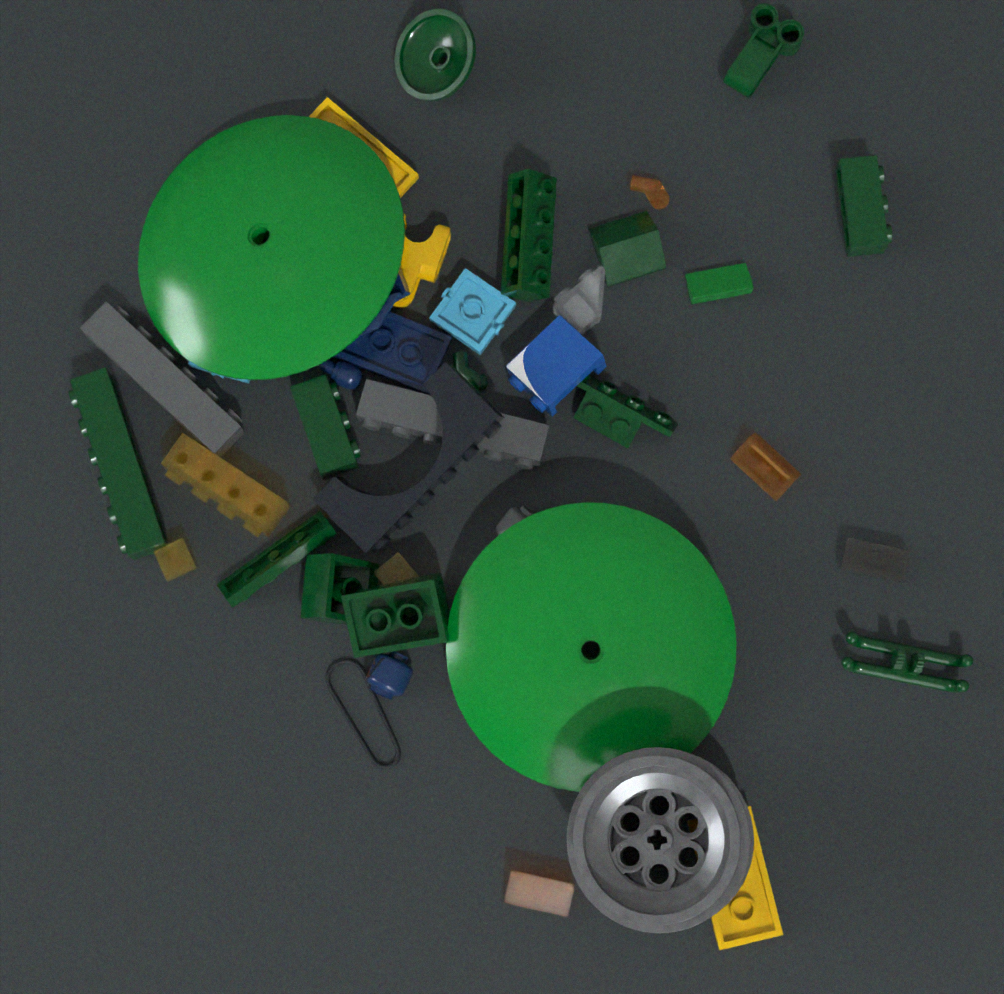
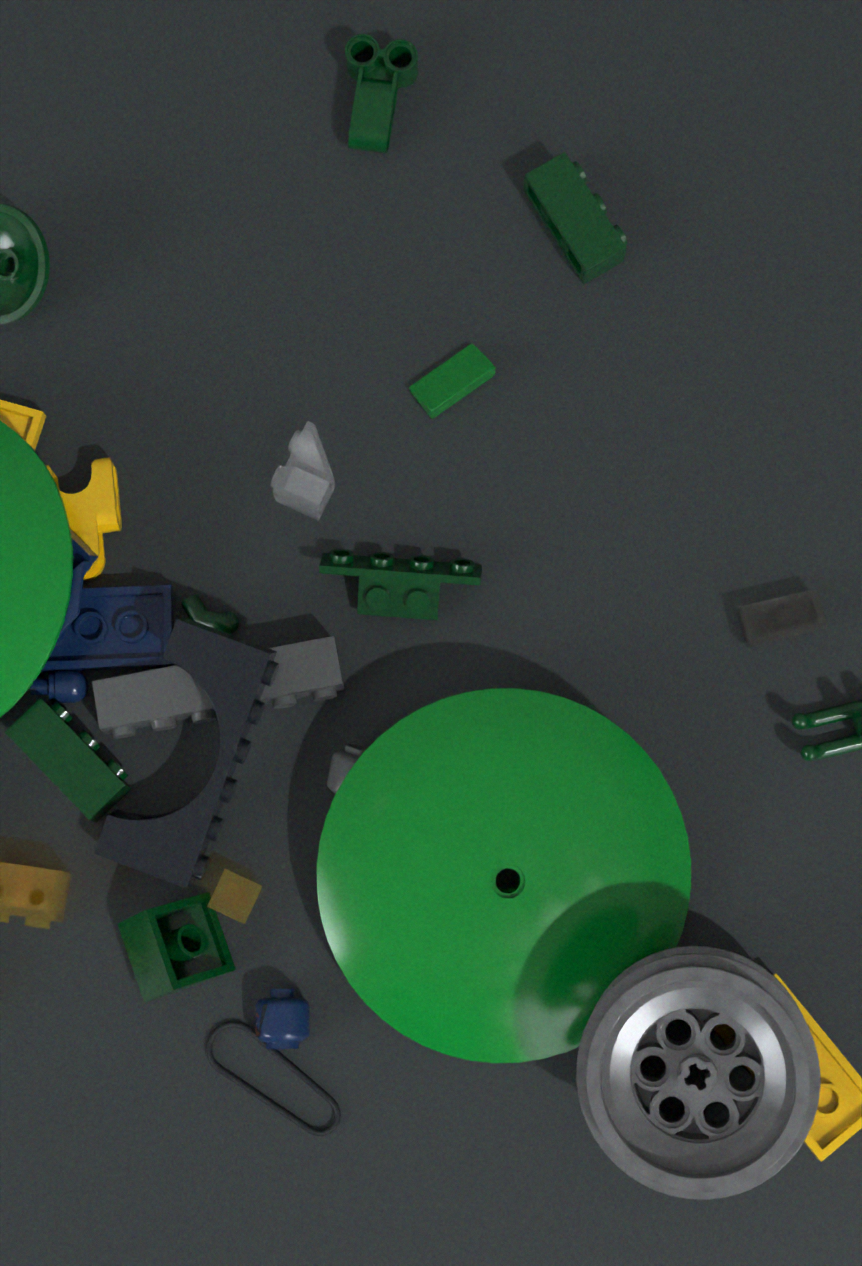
camera: 25 degrees left, 0 degrees up
(276, 559) = (83, 945): dark green plate -> none
(397, 615) = (259, 945): dark green slope -> none
(472, 311) = (181, 543): medium azure plate -> none
(528, 235) = (206, 425): dark green brick -> none
(539, 893) = (579, 1194): clear orange slope -> none
(554, 365) = (306, 563): blue panel -> none
(628, 248) = (329, 387): dark green slope -> none
(653, 190) = (326, 307): clear orange arm -> none
(765, 466) = (605, 567): clear orange slope -> none

